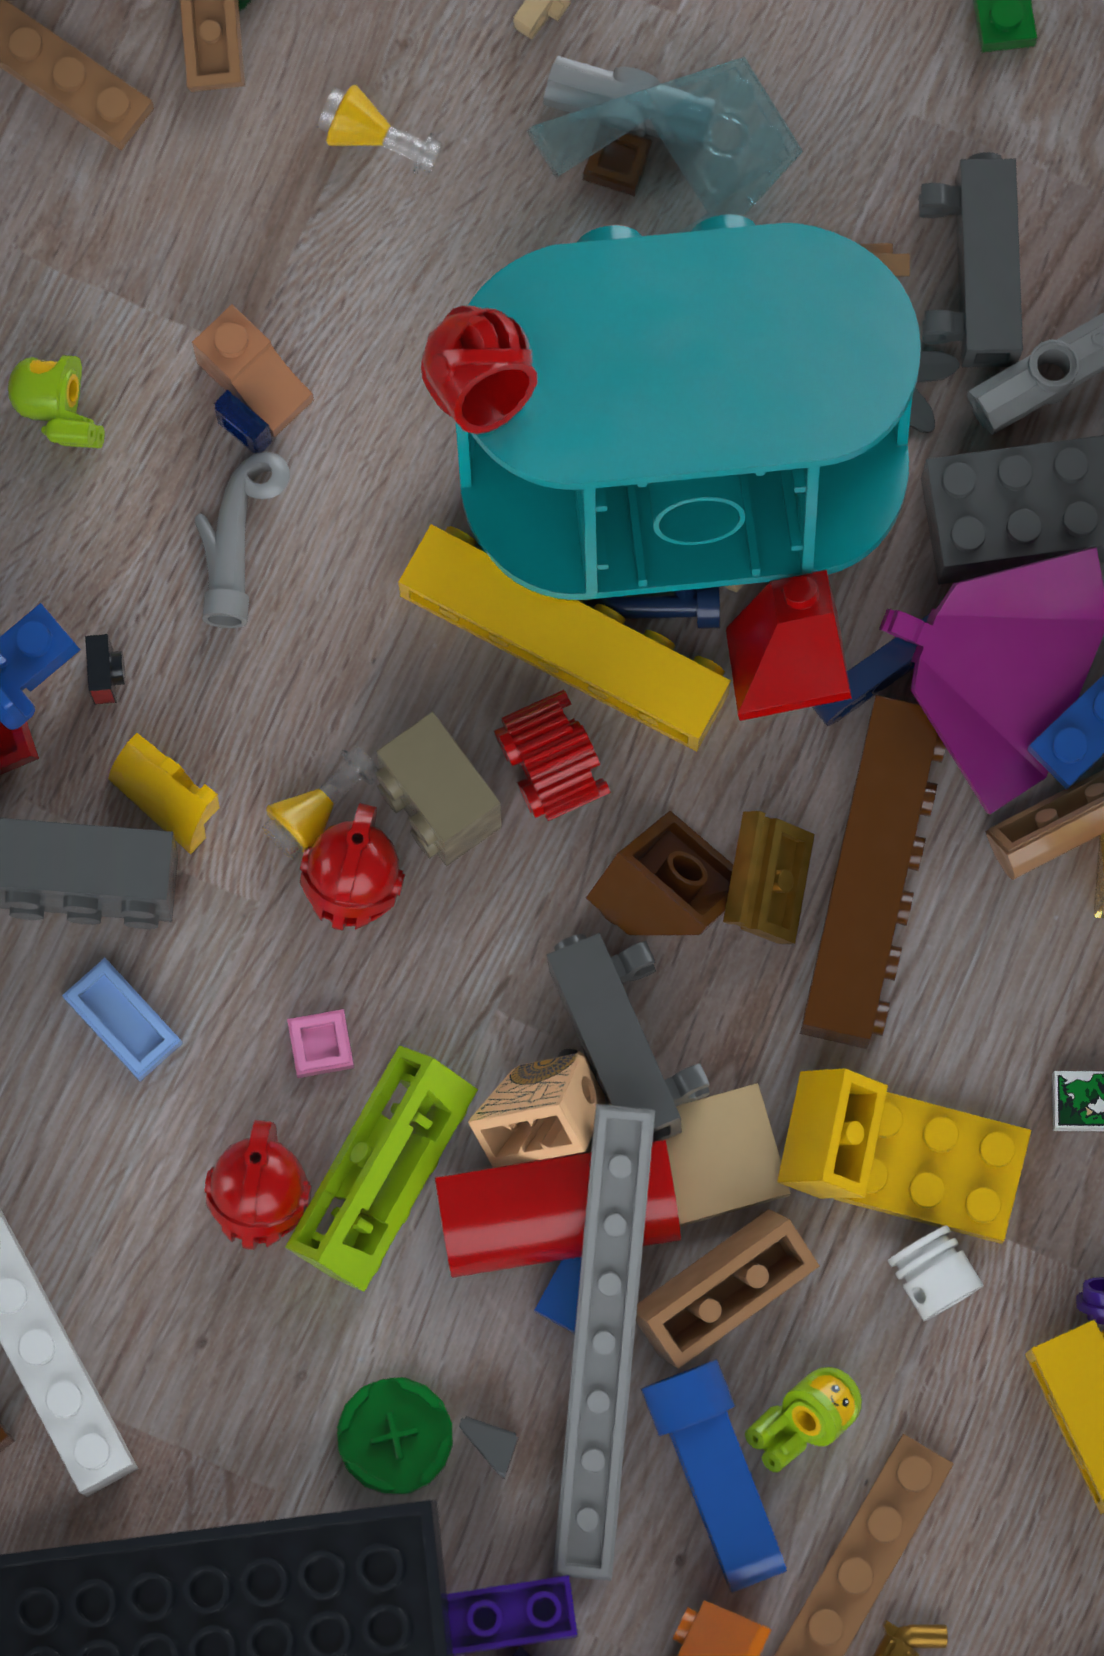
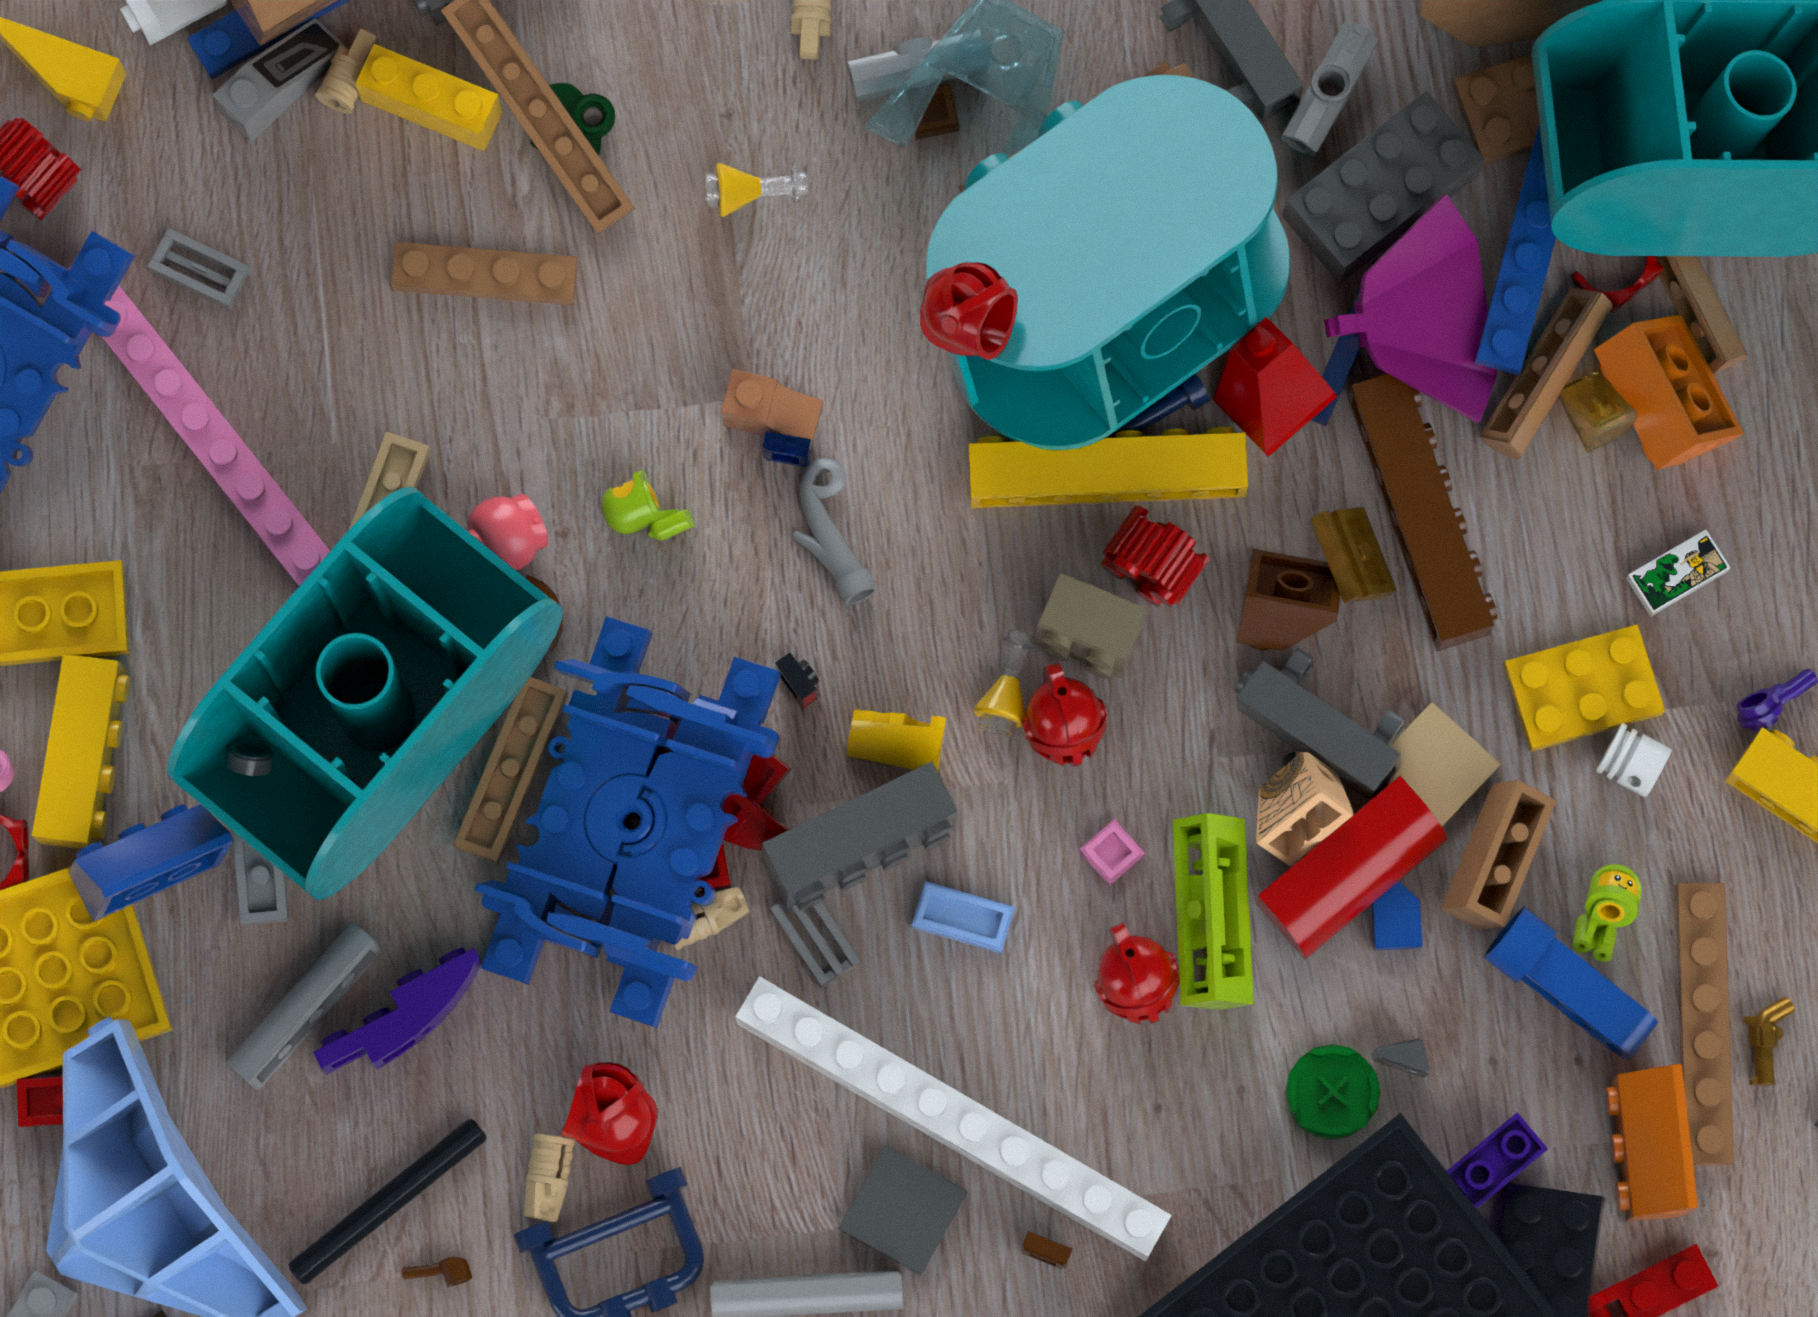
camera: 30 degrees left, 0 degrees up
(603, 1342) = (1441, 939): light grey tile -> none
(832, 1133) = (1507, 705): yellow brick -> none

